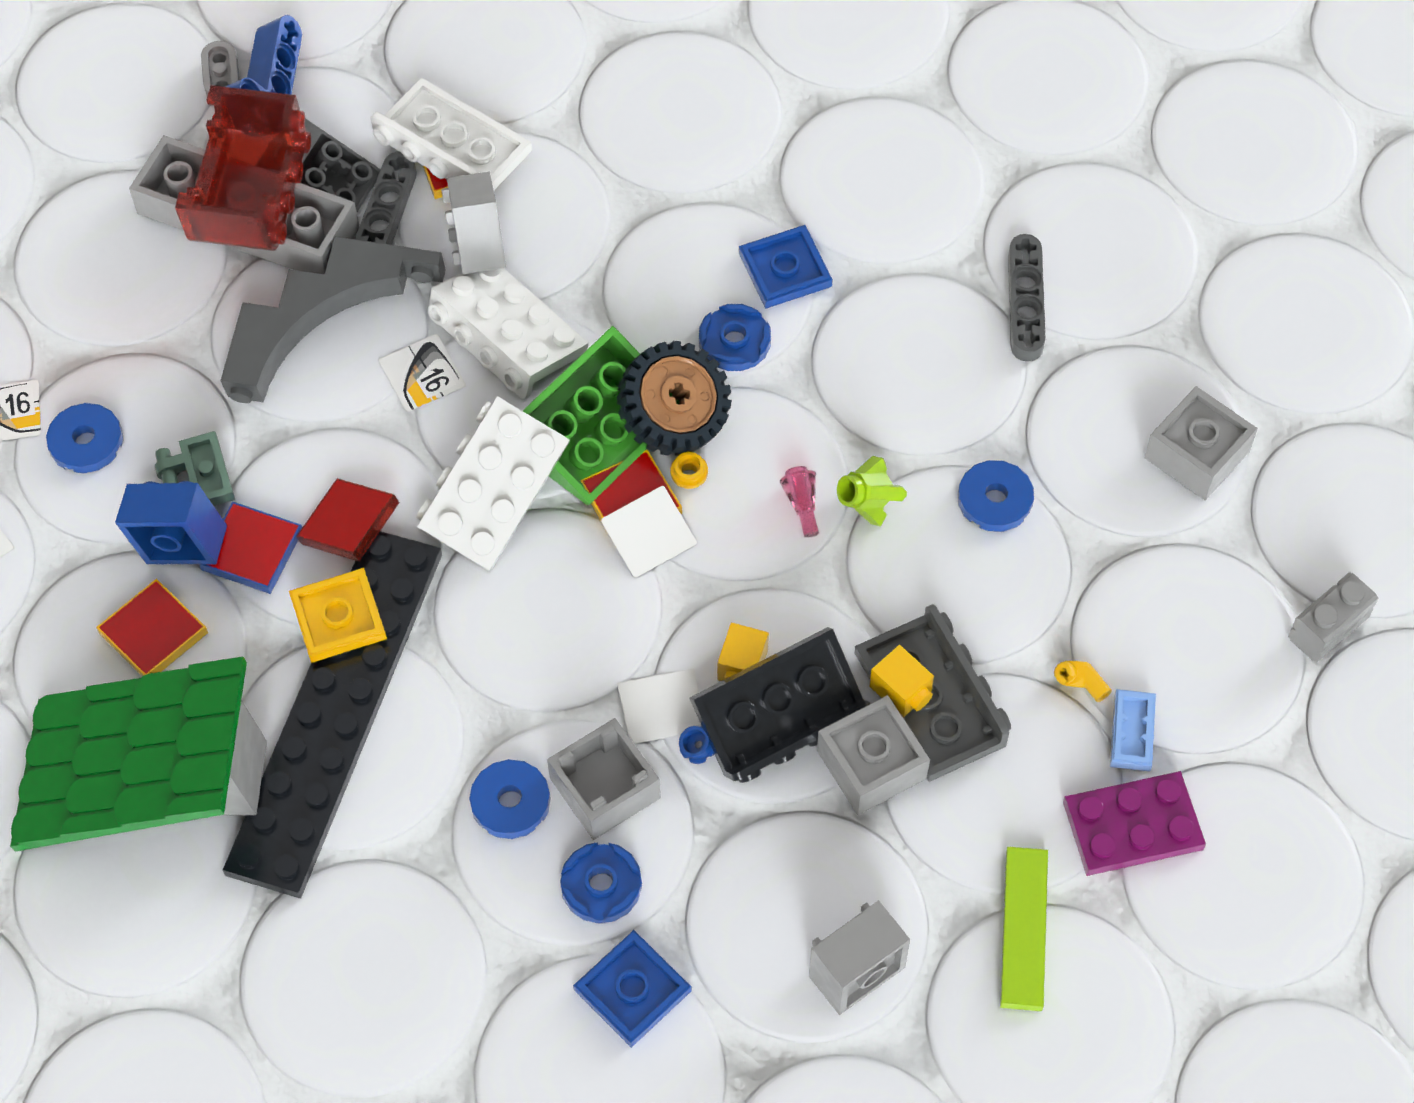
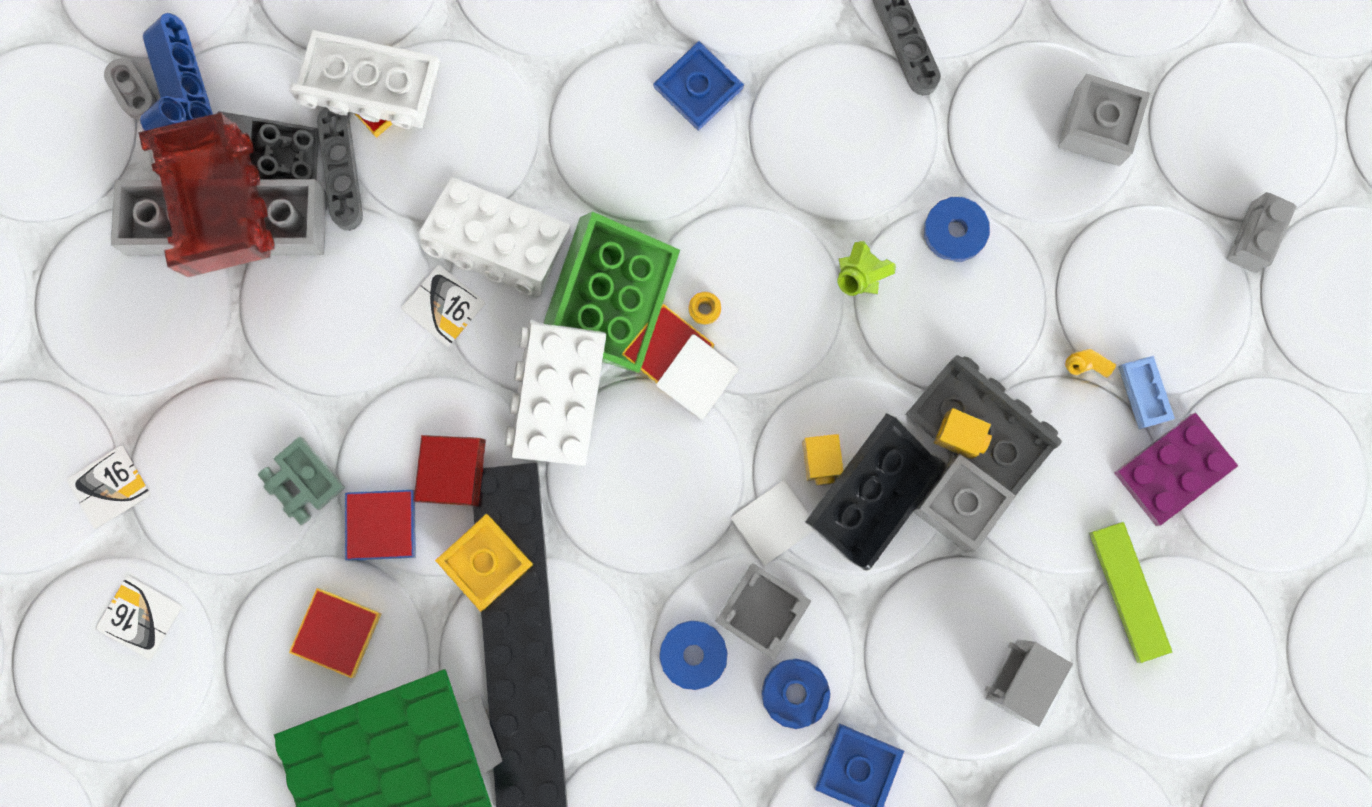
camera: 25 degrees left, 20 degrees up
(79, 420) = (171, 479): blue tile -> none
(171, 523) = (307, 543): blue brick -> none
(353, 275) = (345, 246): dark grey arch -> none
(475, 223) = (428, 157): light grey container -> none
(688, 742) = (813, 553): blue plate -> none
(691, 380) = (646, 259): wheel -> none
(741, 354) = (686, 187): blue tile -> none
(801, 491) = (803, 291): clear pink cone -> none

